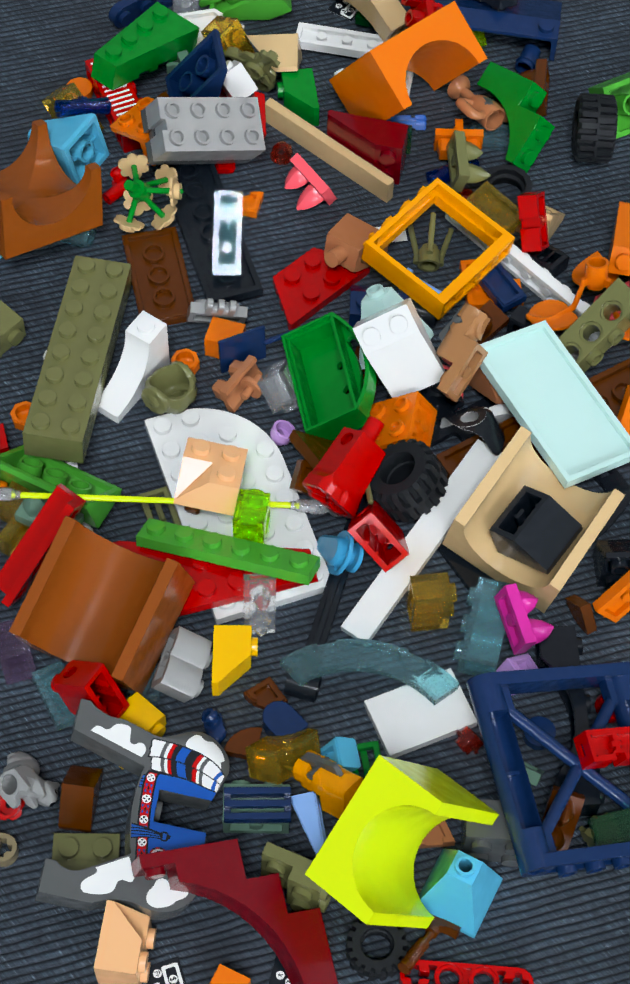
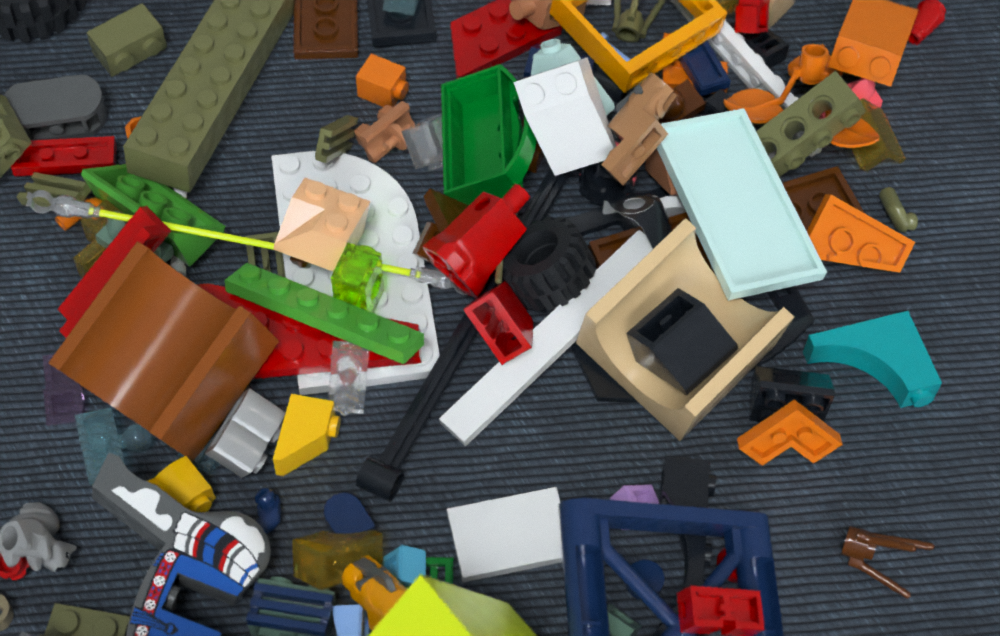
camera: 10 degrees right, 0 degrees up
(79, 798) = (94, 566): reddish brown slope -> none
(89, 682) = (128, 437): red torso -> none
(143, 353) = (280, 95): white arch -> none
(170, 389) = (300, 124): olive hair -> none
(187, 357) = (332, 101): orange tile -> none
(201, 393) = (336, 143): none -> olive tile
(203, 311) = (363, 44): light grey hinge -> none
(236, 744) = (295, 530): reddish brown tile -> none
(244, 344) = (396, 88): dark blue piece -> none
(264, 694) = (334, 481): reddish brown tile -> none
(281, 431) = (423, 185): lavender hinge -> none
(340, 552) = (453, 334): dark azure piece -> none
(371, 657) = (462, 459): clear light blue tile -> none
(405, 418) = (562, 194): orange bracket -> none
(430, 601) = (546, 406): clear yellow brick -> none
(468, 741) = (555, 574): clear red plate -> none
(482, 630) = (605, 445): clear light blue brick -> none
(513, 610) = (643, 455): dark pink tile -> none
(582, 613) = (724, 448): reddish brown tile -> none

